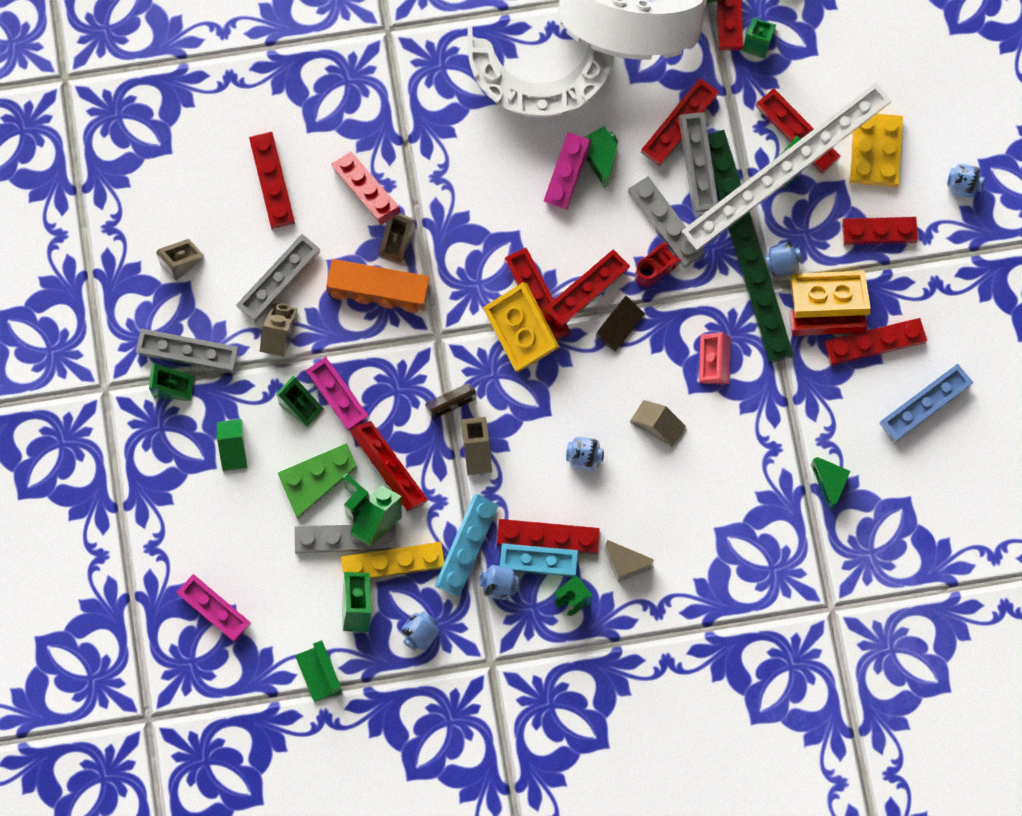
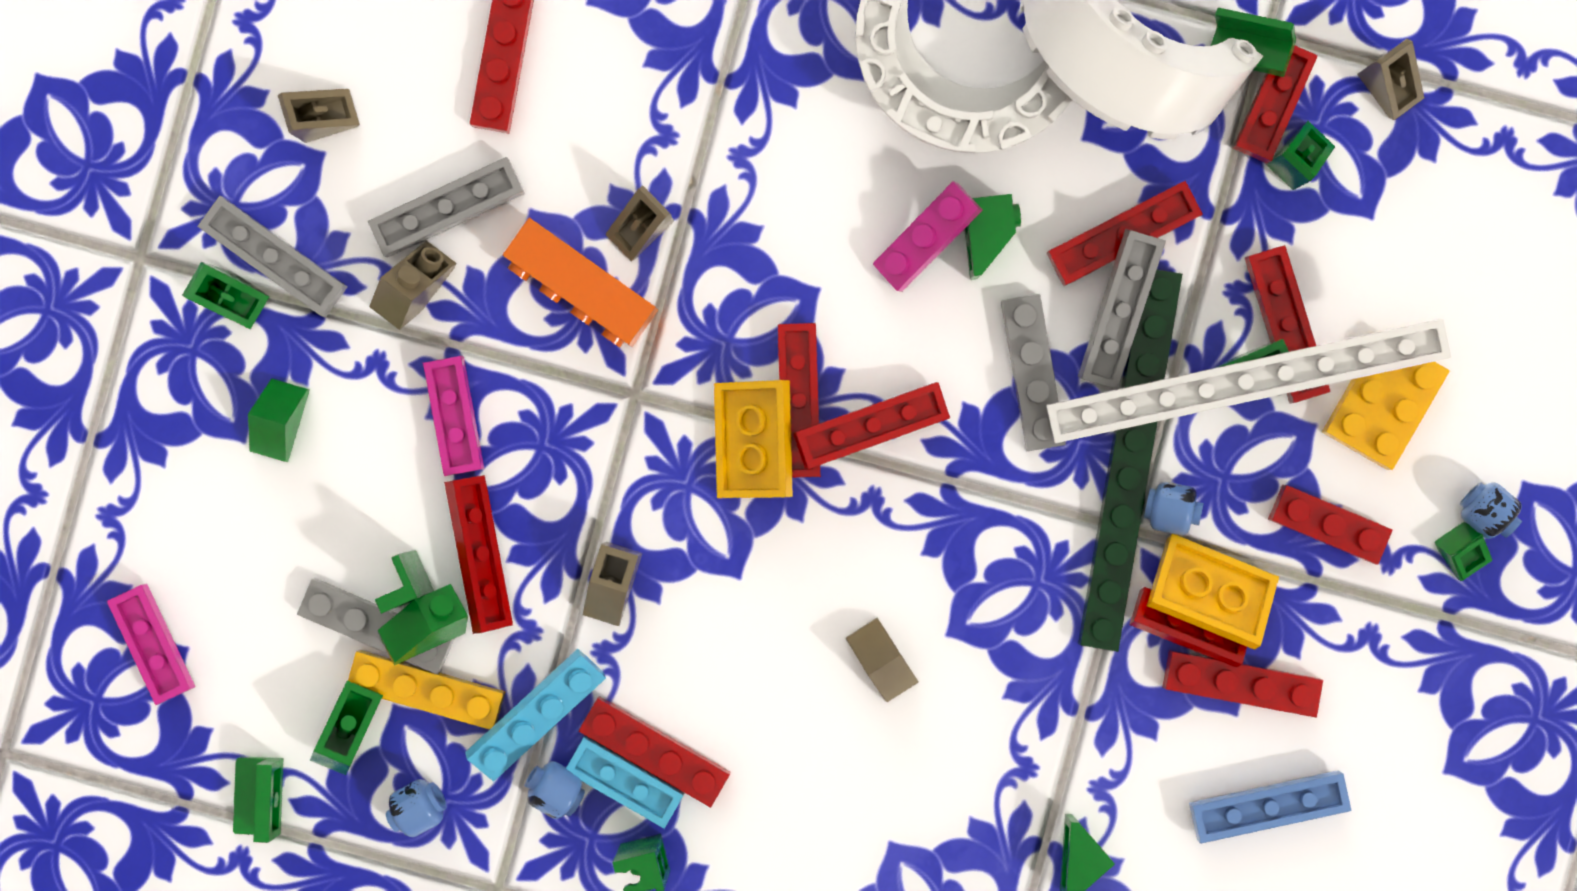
camera: 25 degrees right, 15 degrees up
(298, 401) = (394, 404): green slope -> none
(313, 478) = (372, 521): bright green wing -> none
(366, 188) = (624, 133): plate -> none
(451, 401) = (607, 496): dark brown slope -> none
(584, 453) = (757, 661): medium blue head -> none
(620, 324) = (896, 494): dark brown slope -> none
(625, 561) = (743, 842): dark tan slope -> none
(659, 262) = (994, 432): red piece -> none
(715, 358) = (1005, 604): coral slope -> none
(964, 211) = (1464, 550): none -> green slope

